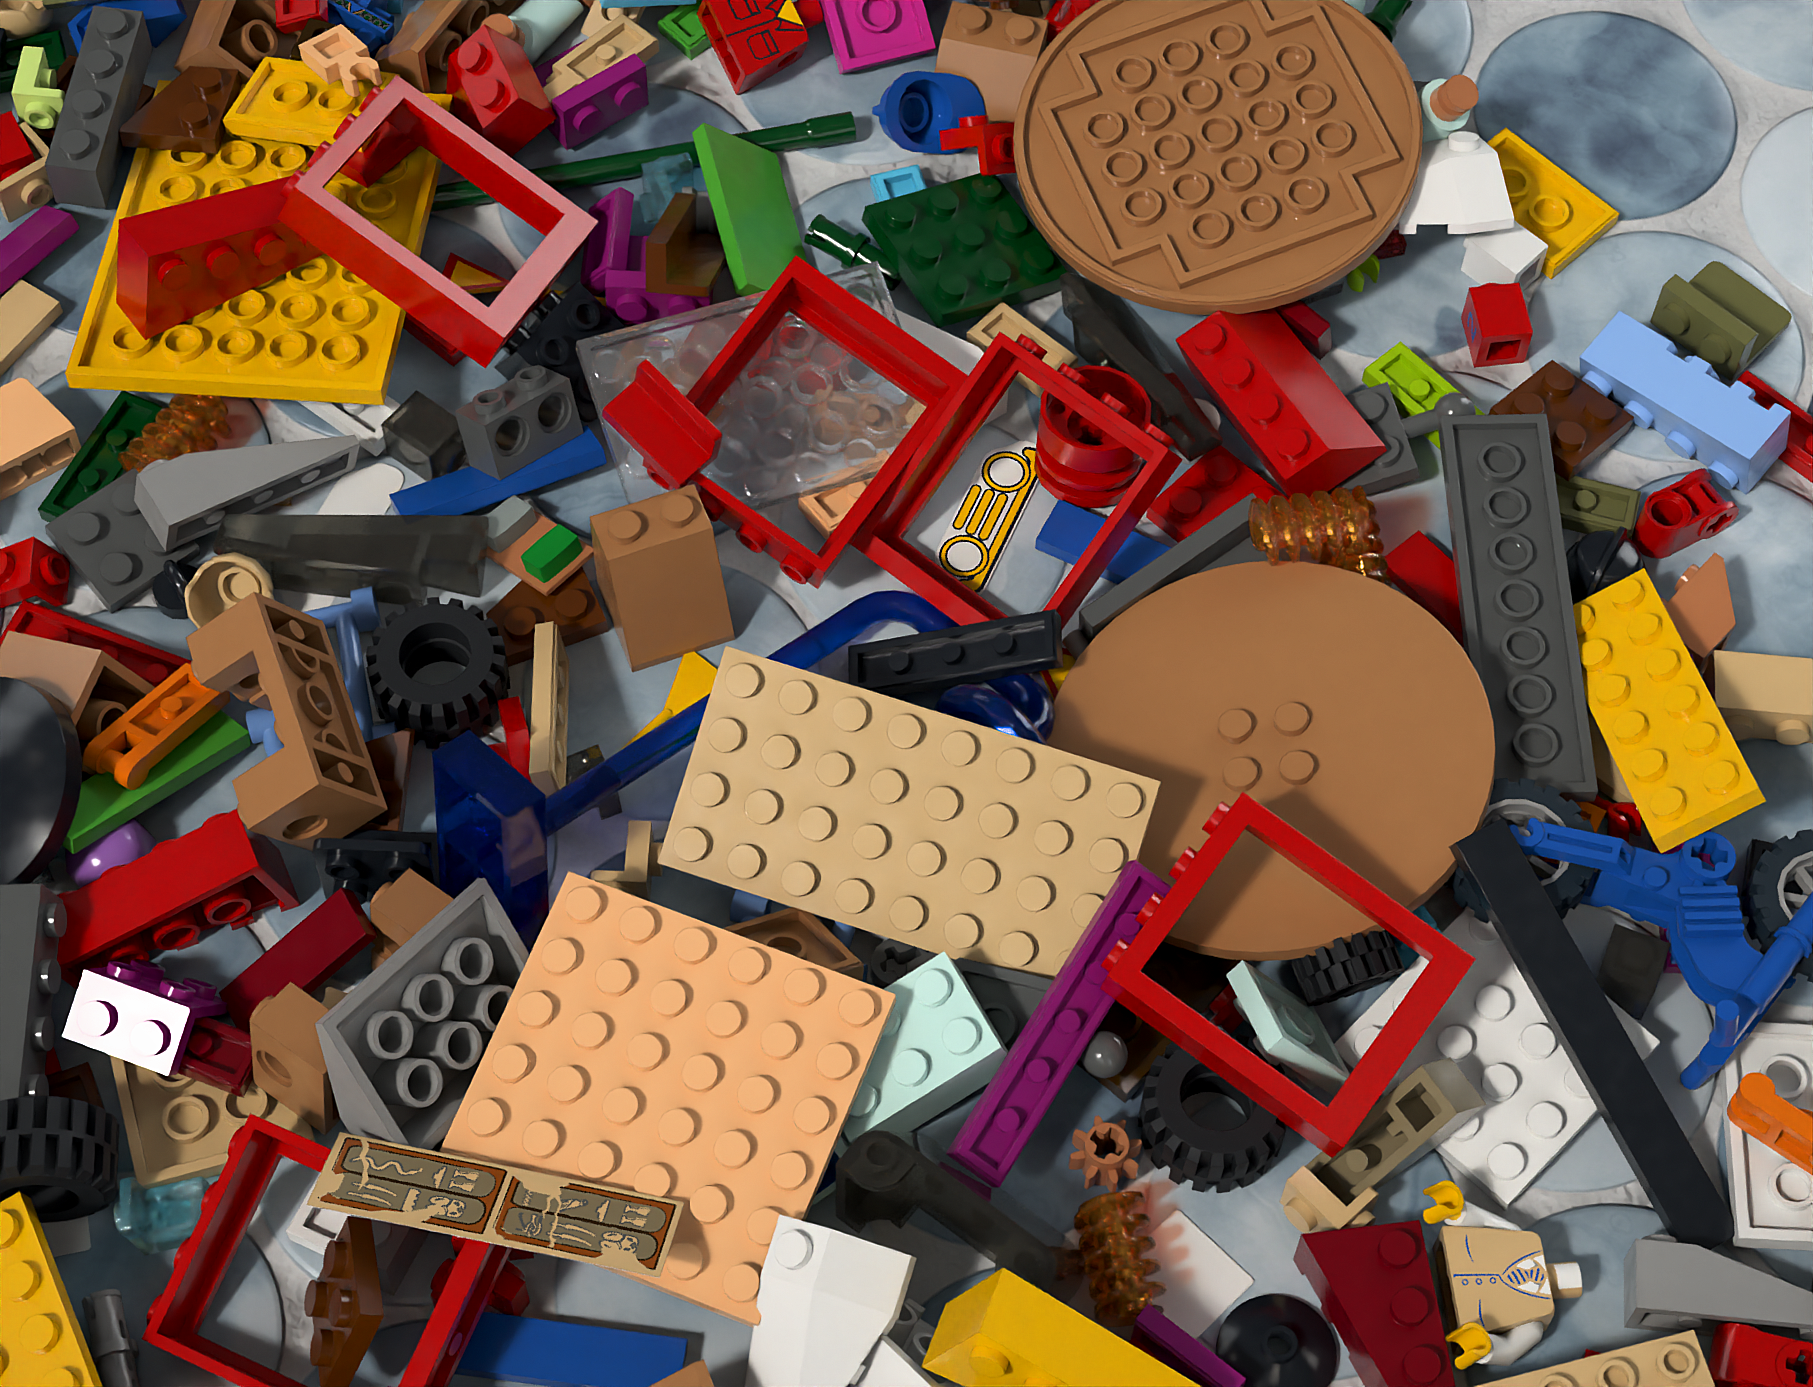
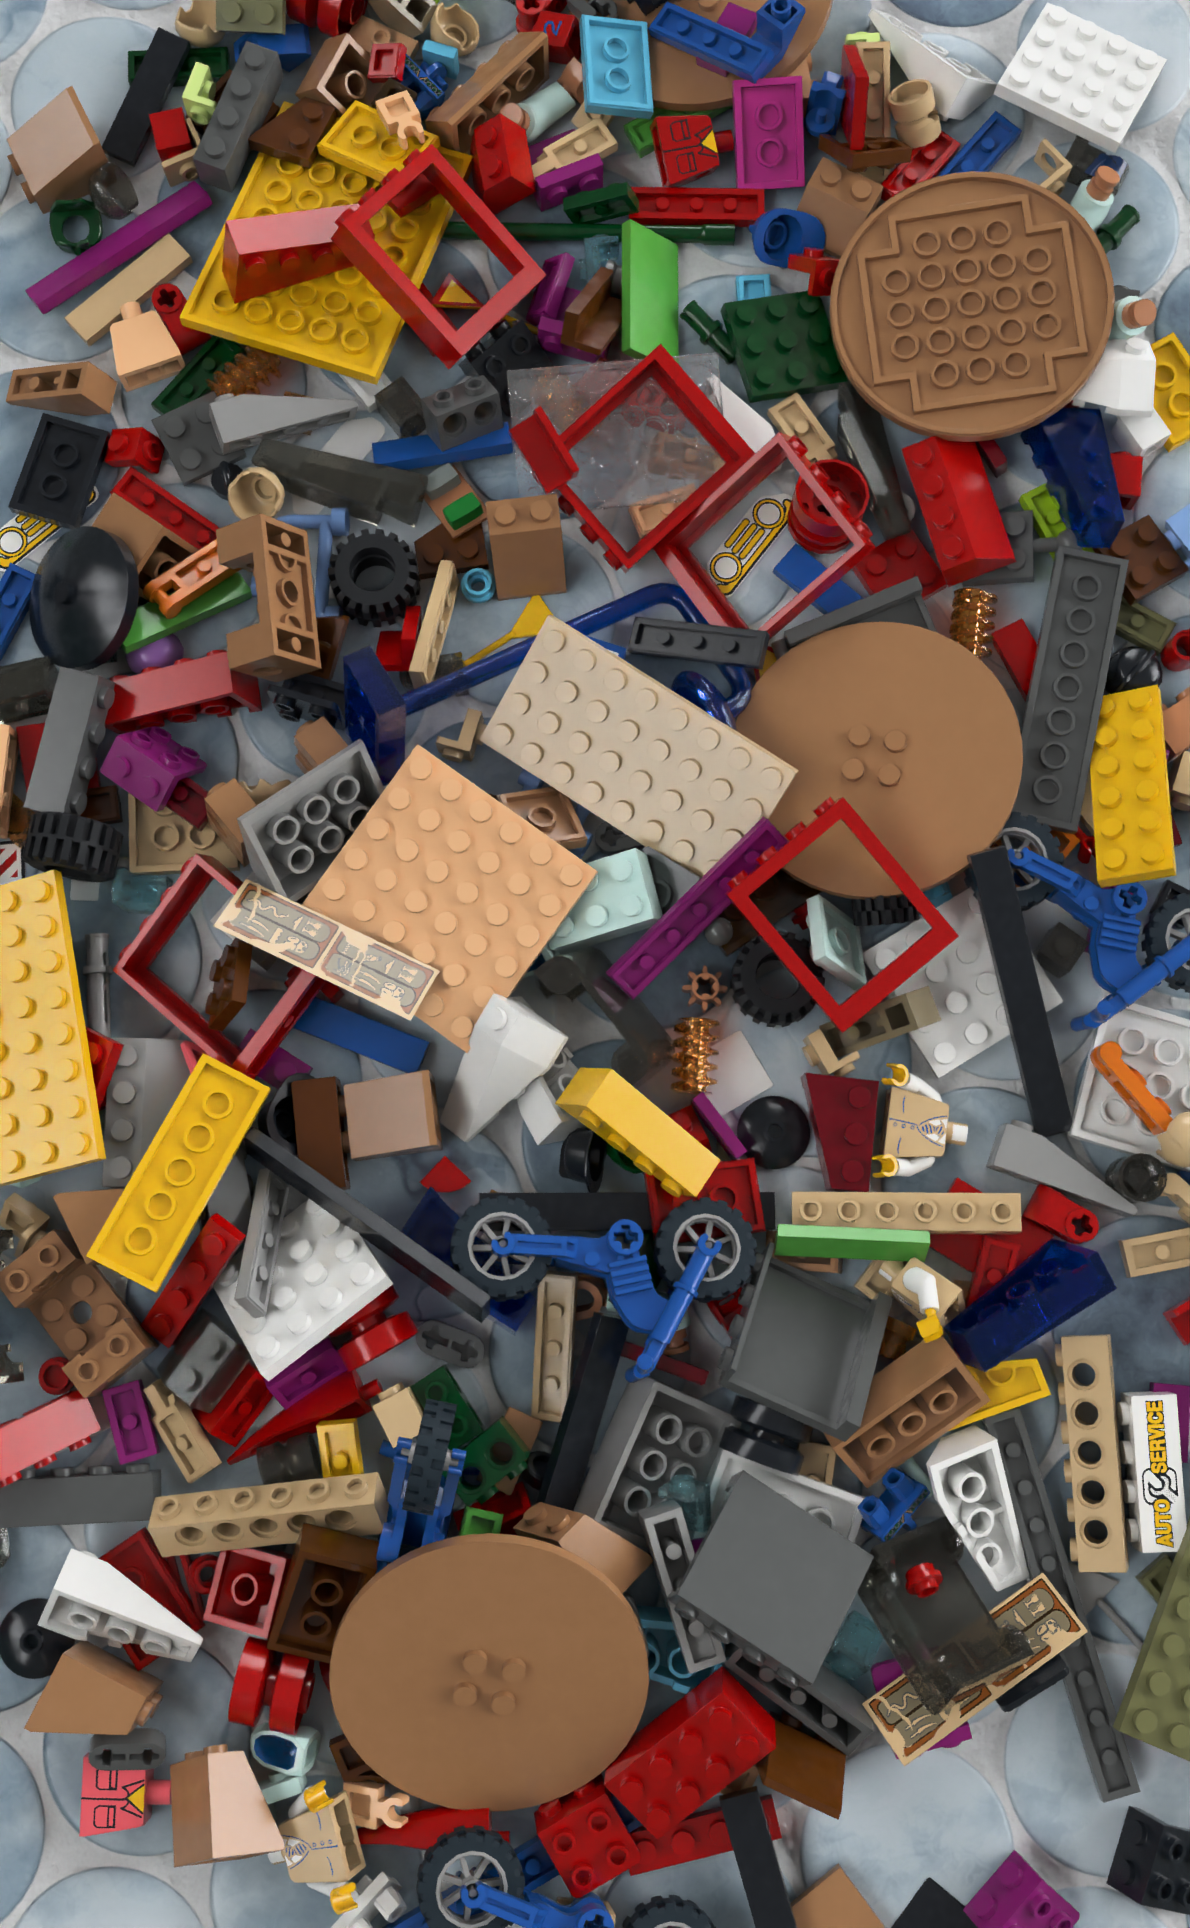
camera: 15 degrees right, 20 degrees up
(45, 367) = (184, 337): none -> red piece
(303, 956) = (250, 754): dark red tile -> none
(598, 641) = (474, 576): none -> medium azure plate
(654, 119) = (601, 204): none -> dark green plate
(789, 98) = (698, 206): none -> red plate
(1309, 523) = (947, 609): clear orange piece -> none
(1437, 319) = (1079, 473): none -> clear blue wedge

